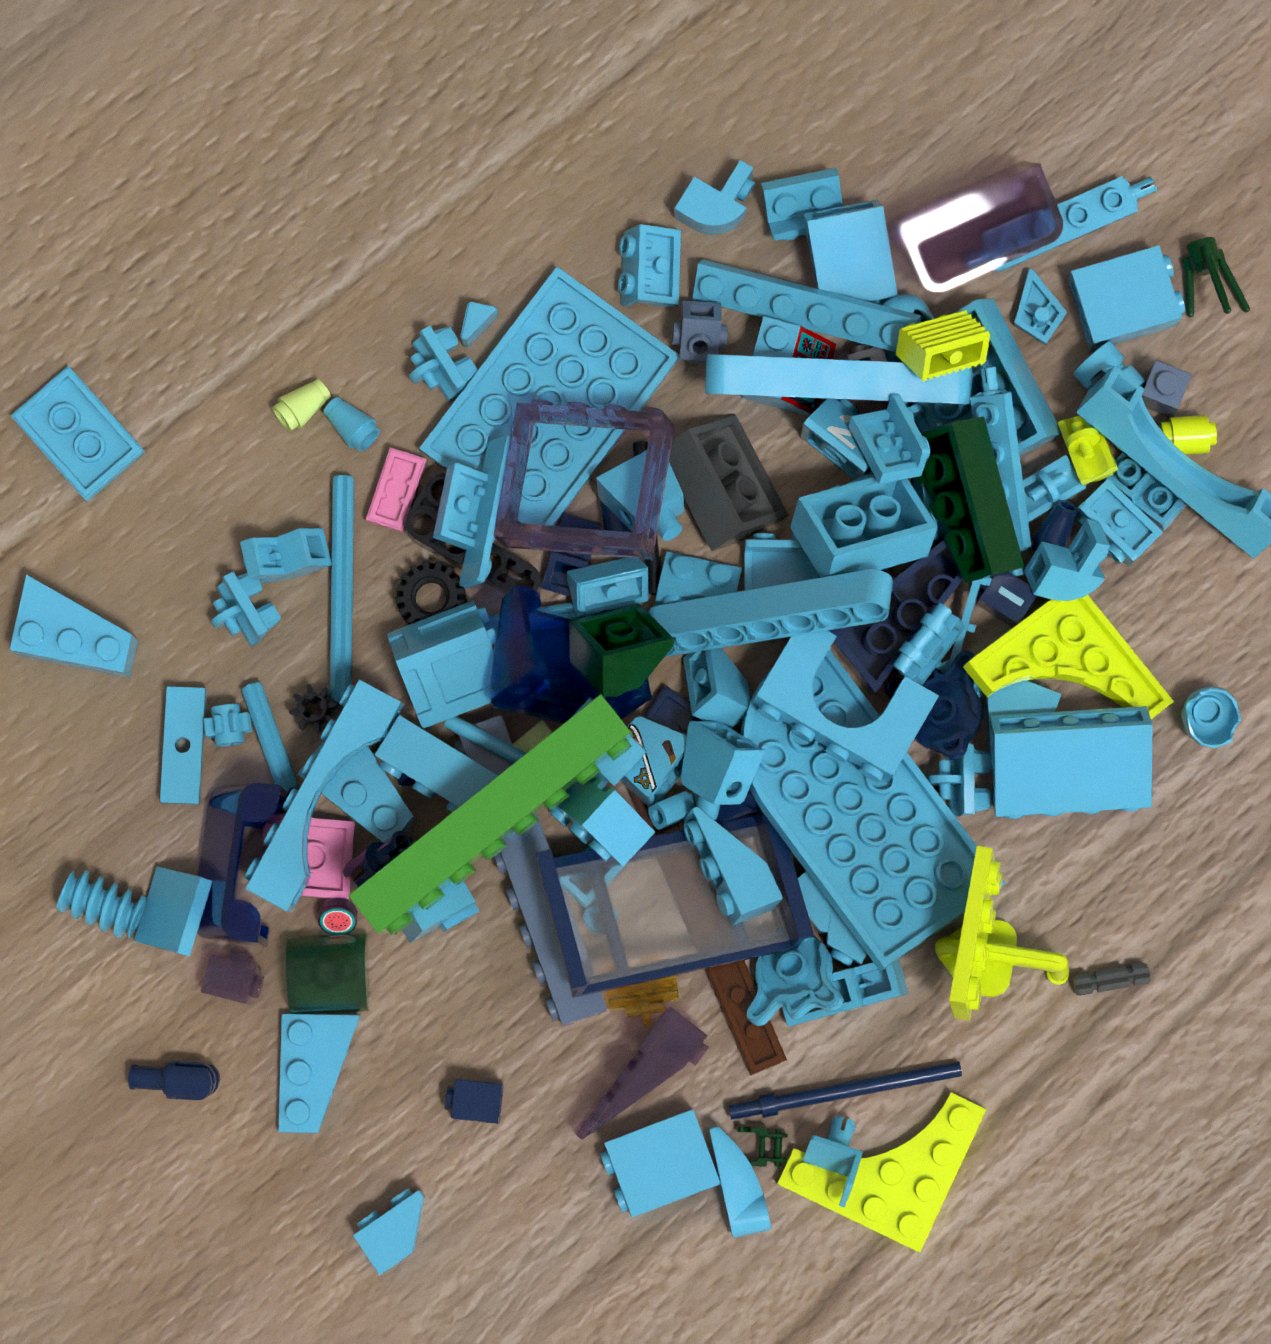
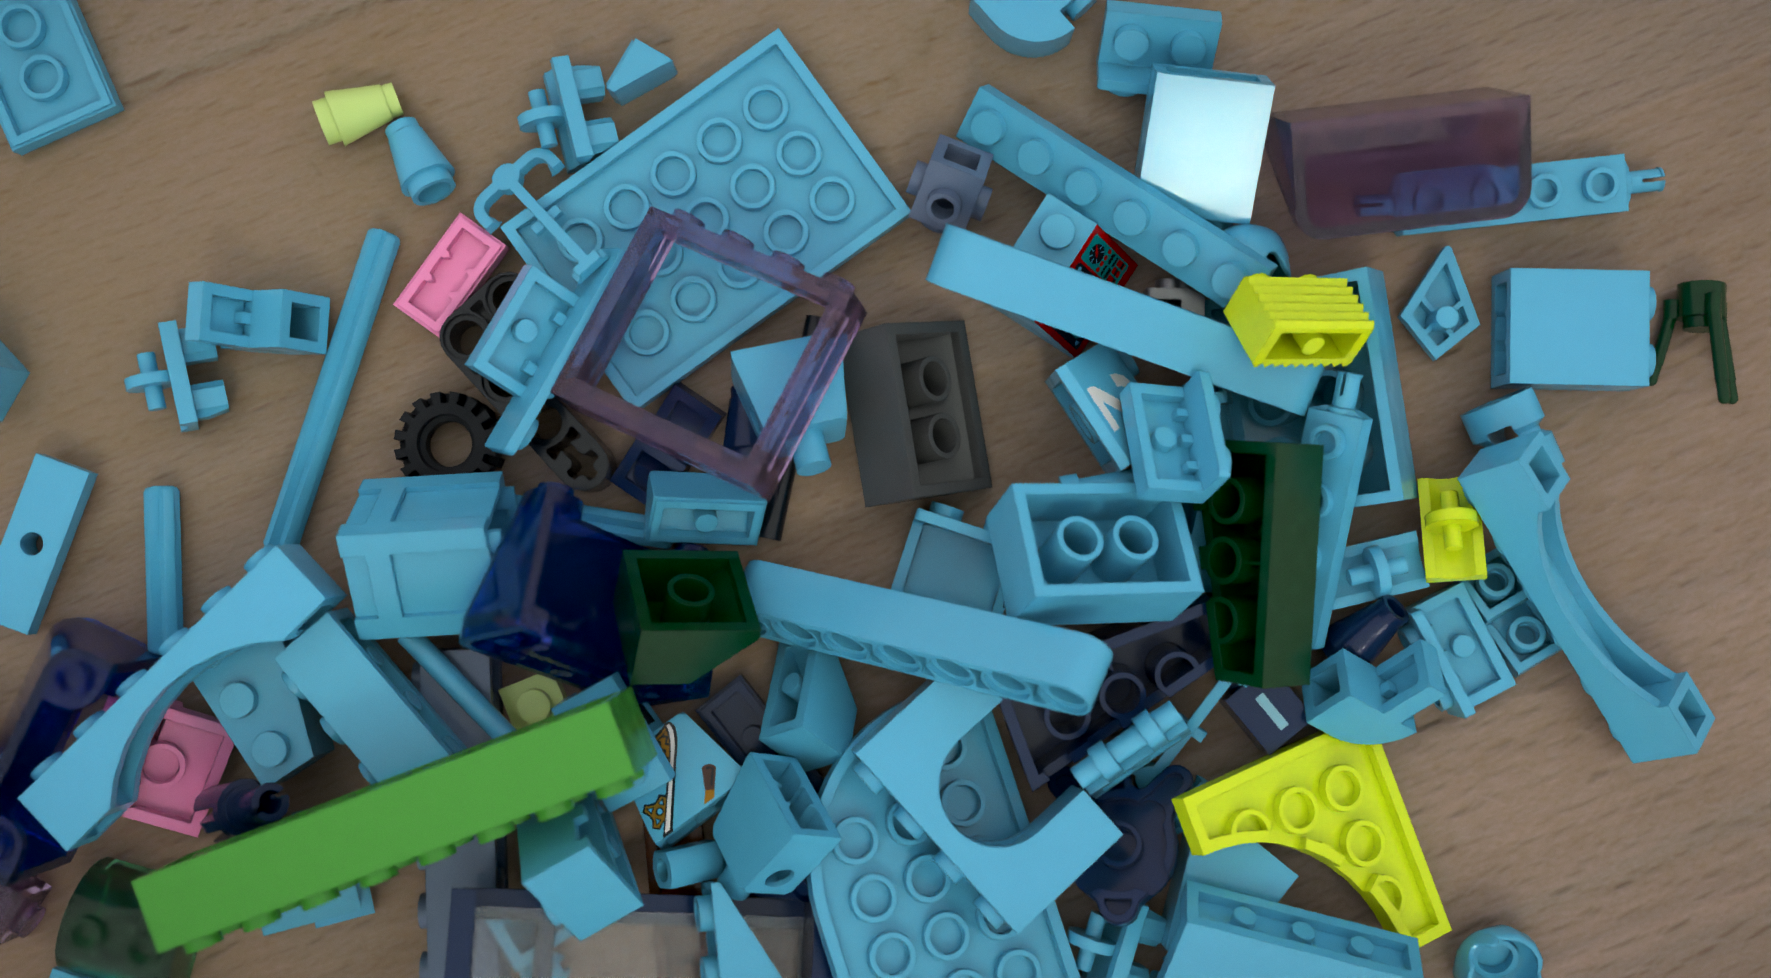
camera: 15 degrees right, 5 degrees up
(227, 725) = (103, 536): medium azure gear -> none
(313, 698) = (218, 548): black gear -> none
(337, 916) = (166, 847): tile -> none
(414, 417) = (509, 180): none -> medium azure piece
(650, 266) = (911, 70): medium azure bracket -> none
(694, 578) = (830, 541): medium azure bracket -> none
(1164, 388) = (1595, 479): sand blue brick -> none
(1190, 433) = (1604, 555): neon yellow brick -> none

